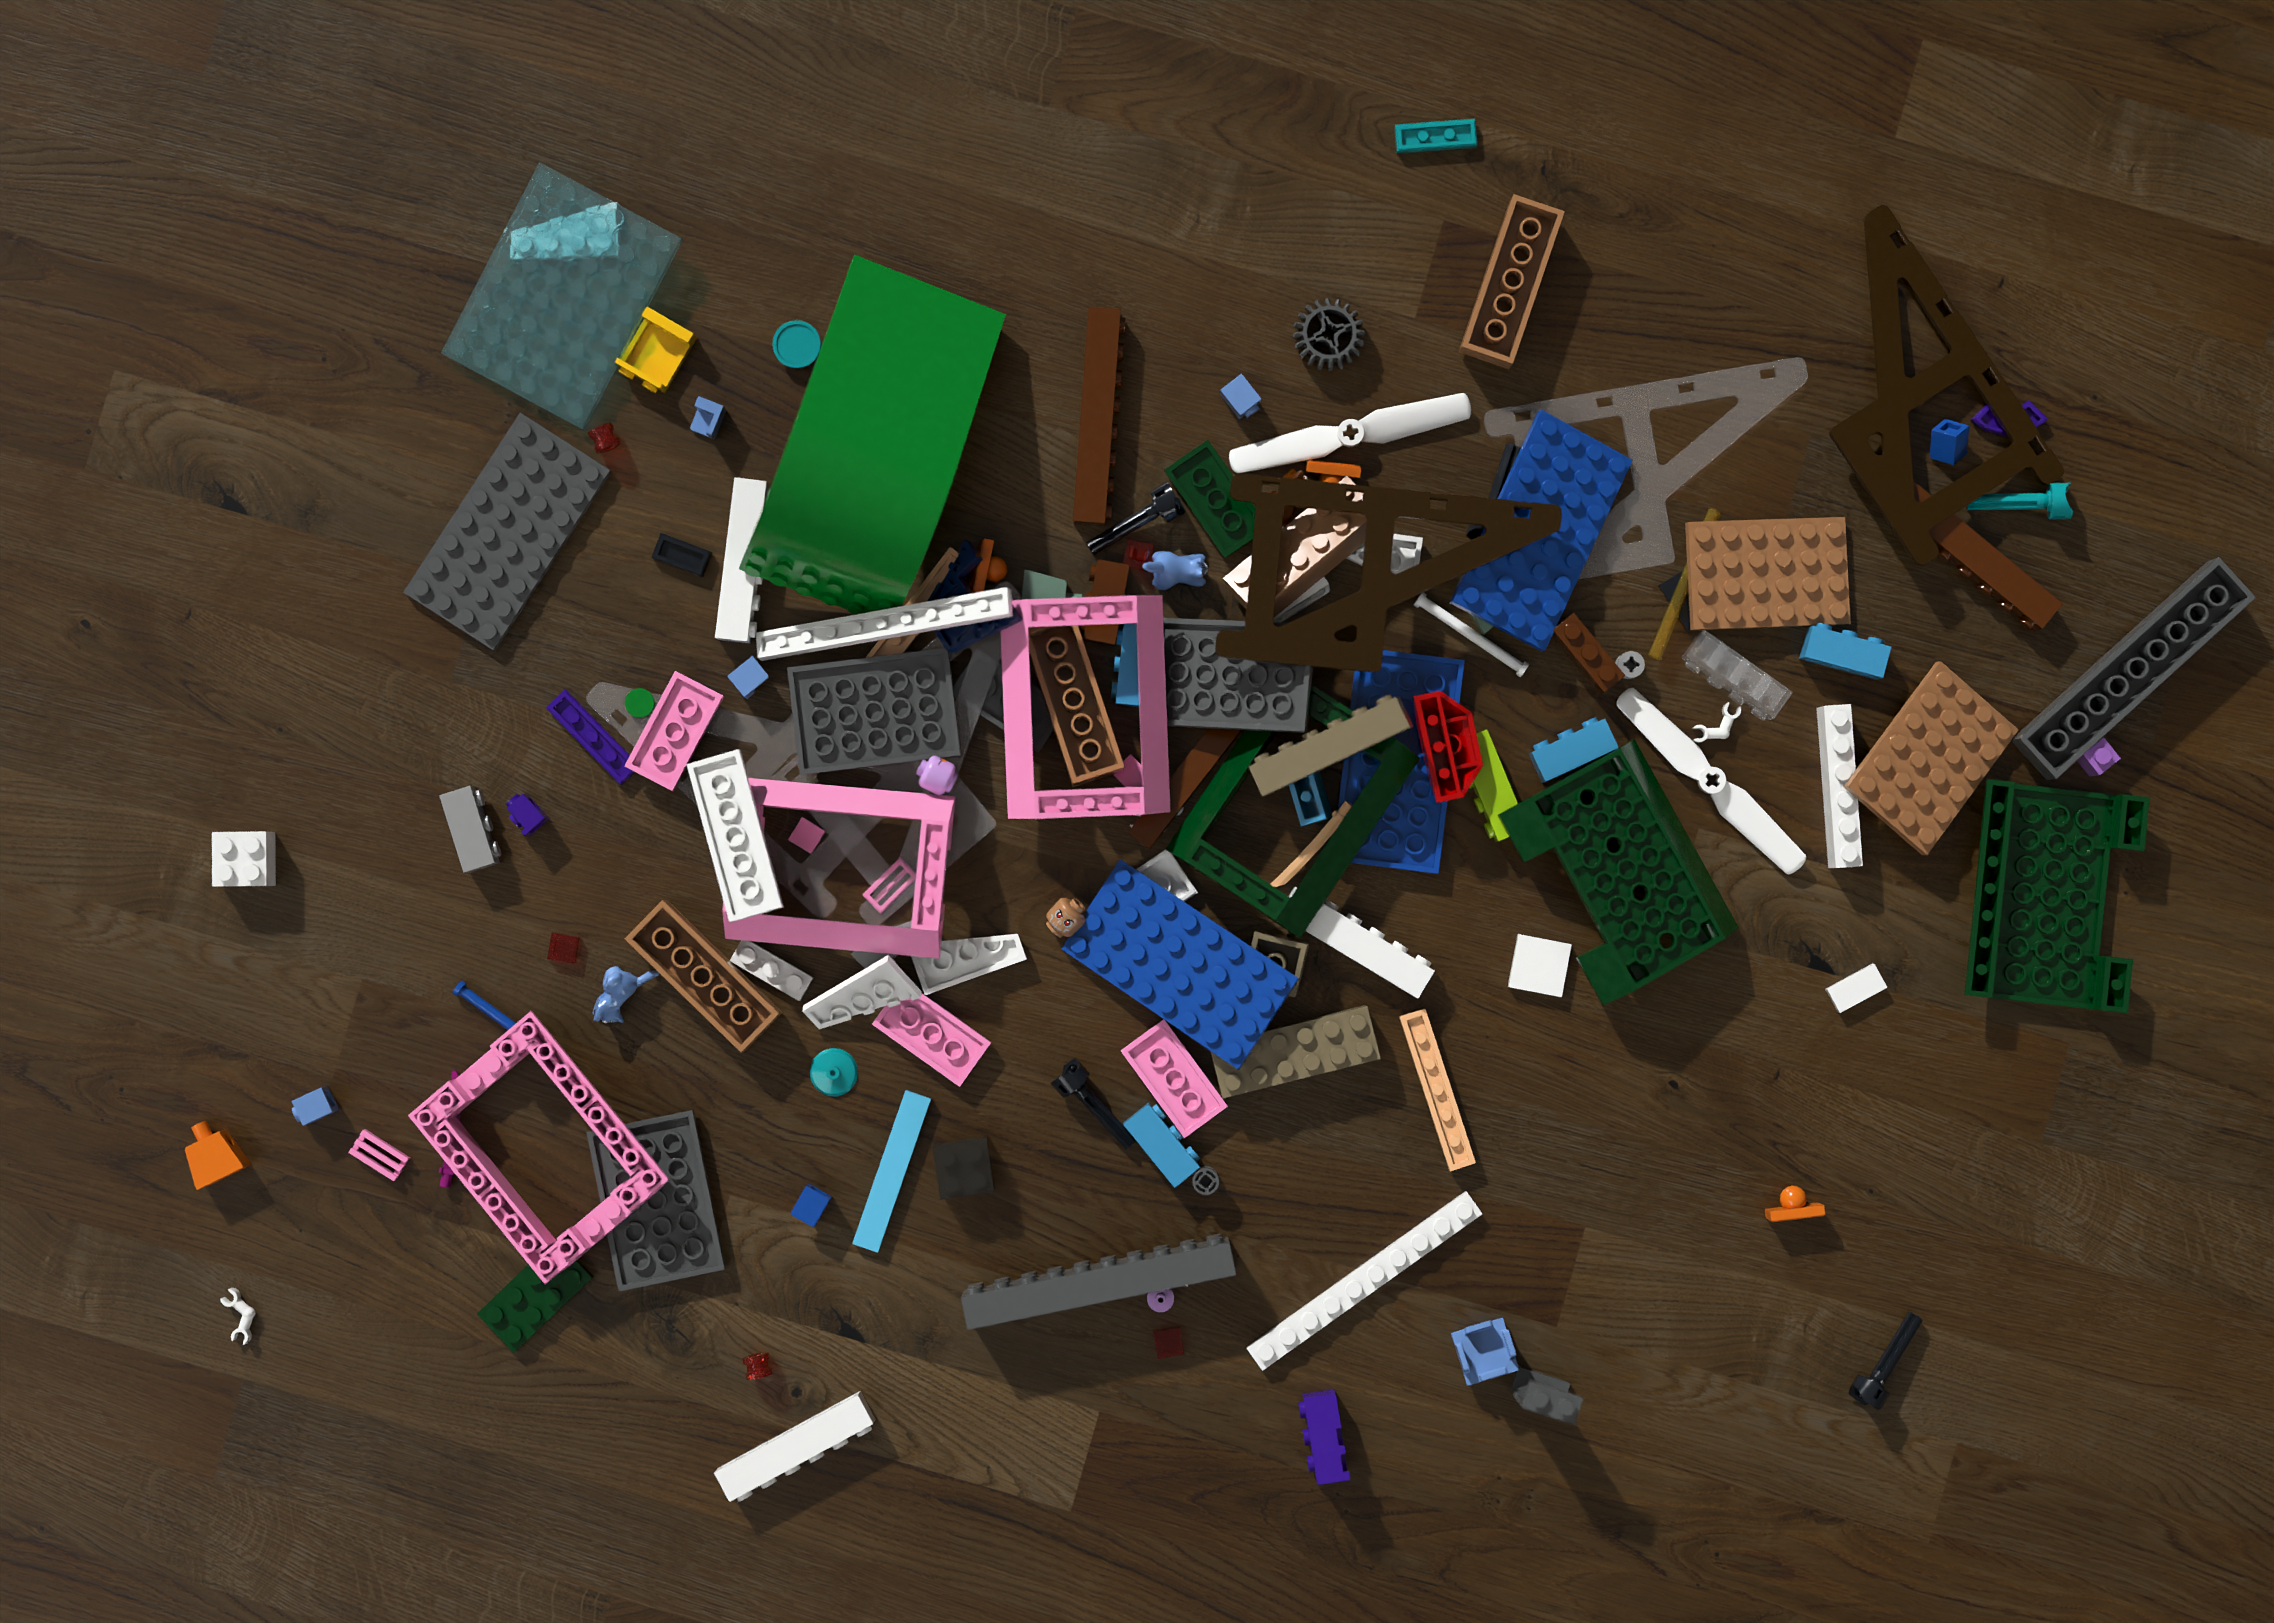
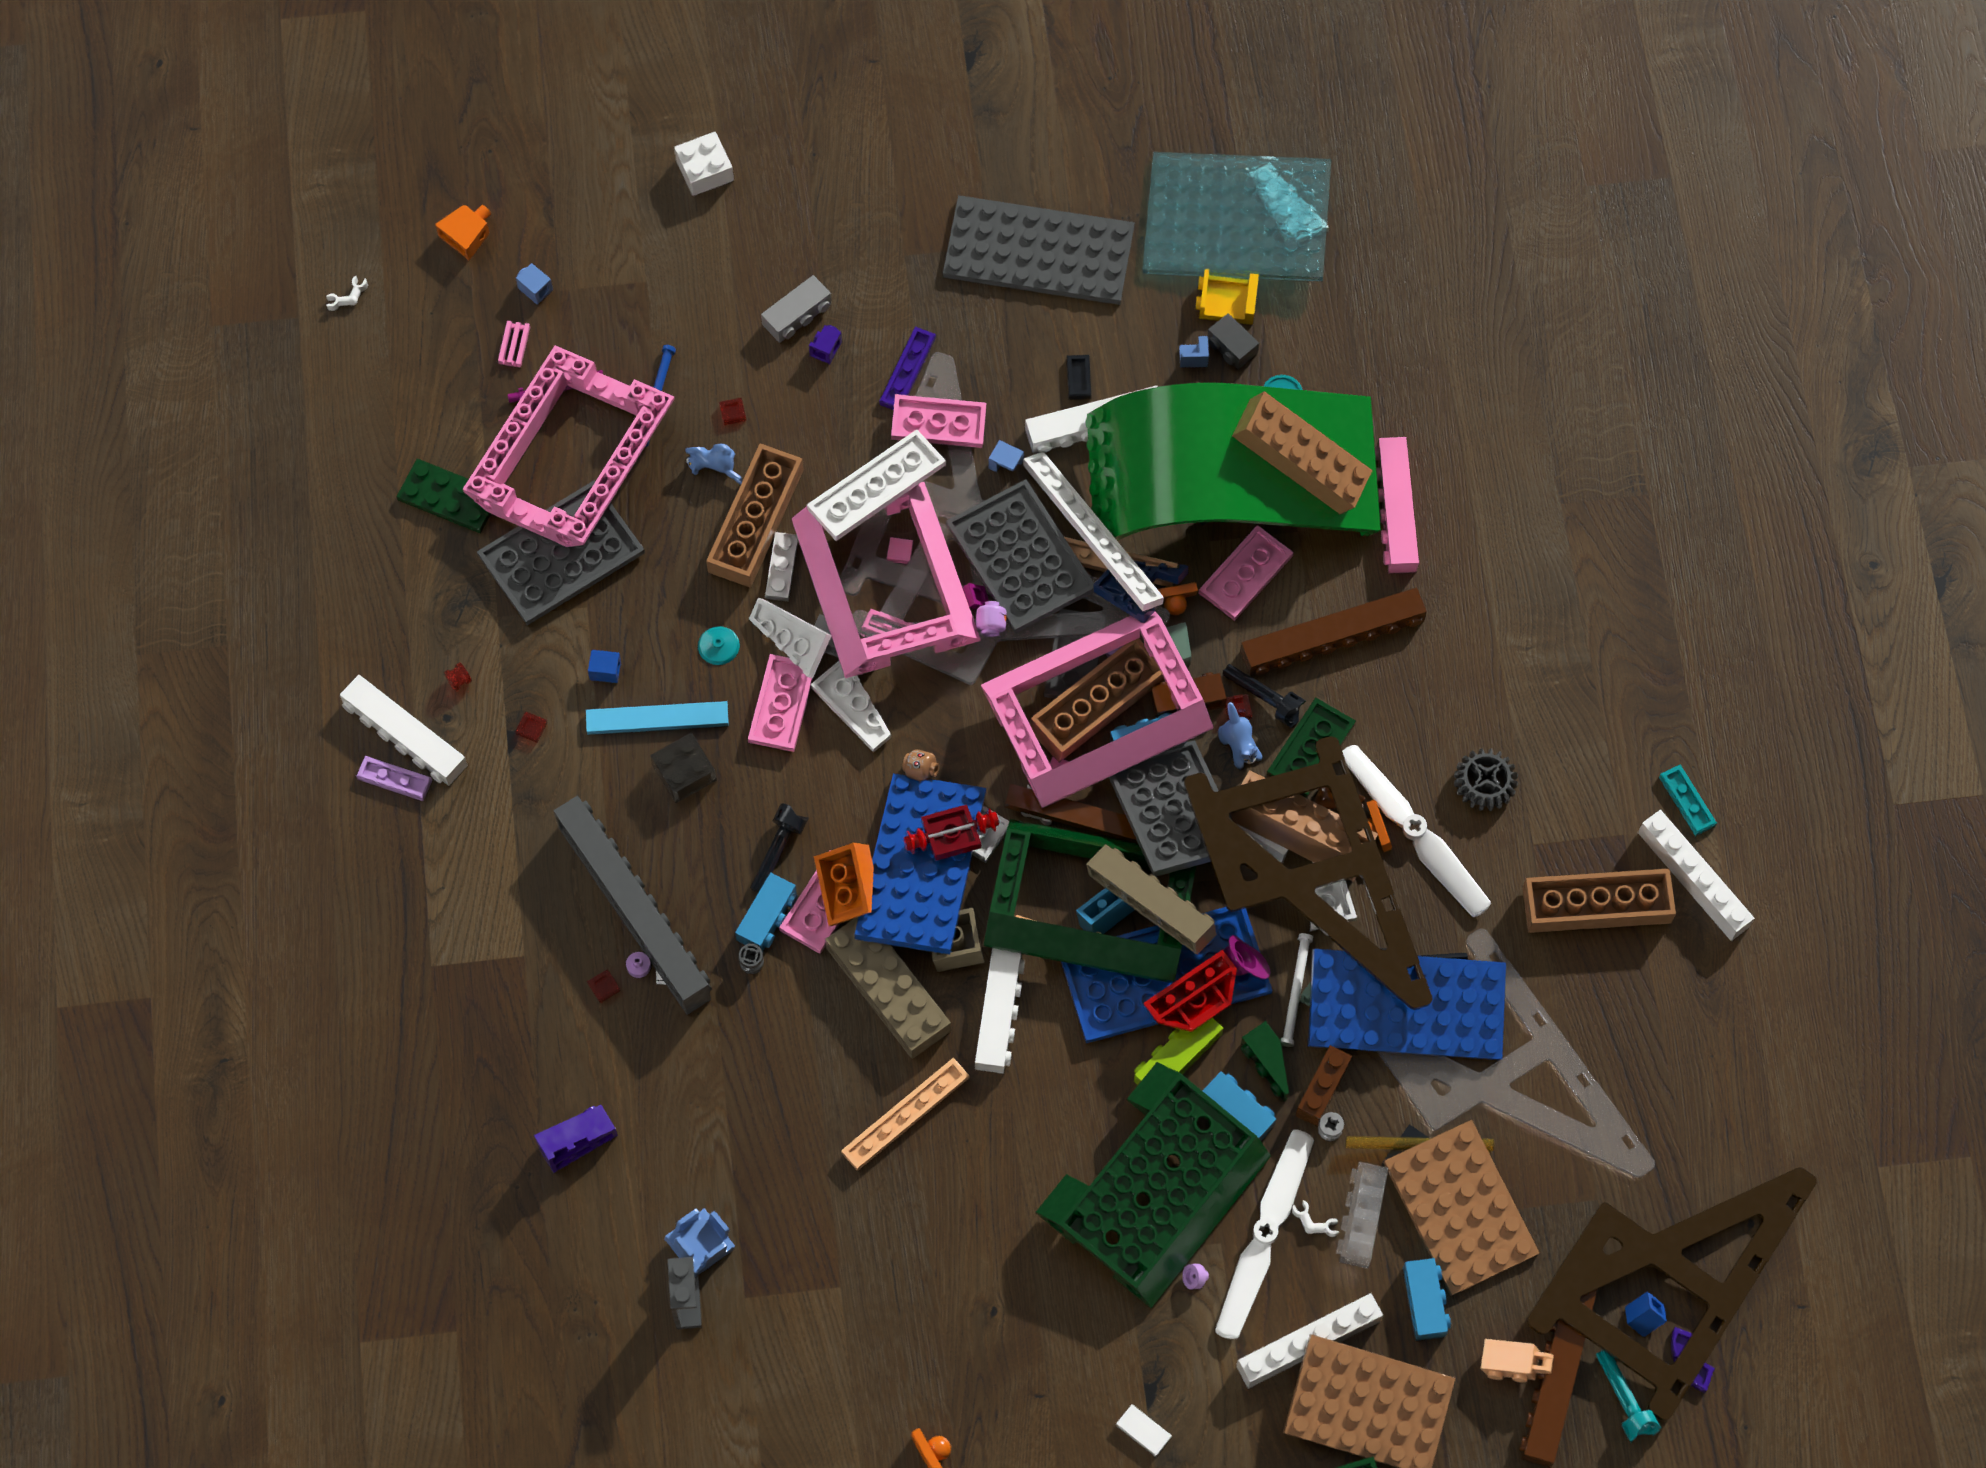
camera: 65 degrees right, 20 degrees down
(604, 438) = (1143, 286): clear red wheel -> none
(639, 702) = (949, 390): green sticker -> none
(712, 370) = (1232, 341): none -> dark grey brick
(844, 1474) = (394, 778): none -> lavender tile
(846, 1307) = (531, 727): none -> clear red tile
(899, 778) = (975, 595): none -> magenta plate
(904, 364) = (1302, 453): none -> medium nougat brick
(981, 282) = (1397, 505): none -> bright pink brick
(993, 481) = (1245, 572): none -> bright pink plate
(1164, 920) = (951, 832): none -> dark red plate
(1175, 1053) = (846, 882): none -> orange slope
(1241, 397) = (1402, 732): medium blue brick -> none
(1364, 1280) = (720, 1122): white plate -> none
(1427, 673) = (1246, 959): none -> magenta piece
(1524, 168) = (1696, 875): none -> white brick
(1528, 694) = (1266, 1051): none -> dark green slope
(1539, 965) = (1045, 1156): white tile -> none
(1726, 870) = (1194, 1276): none -> lavender tile
(1946, 594) = (1514, 1360): none -> light nougat brick

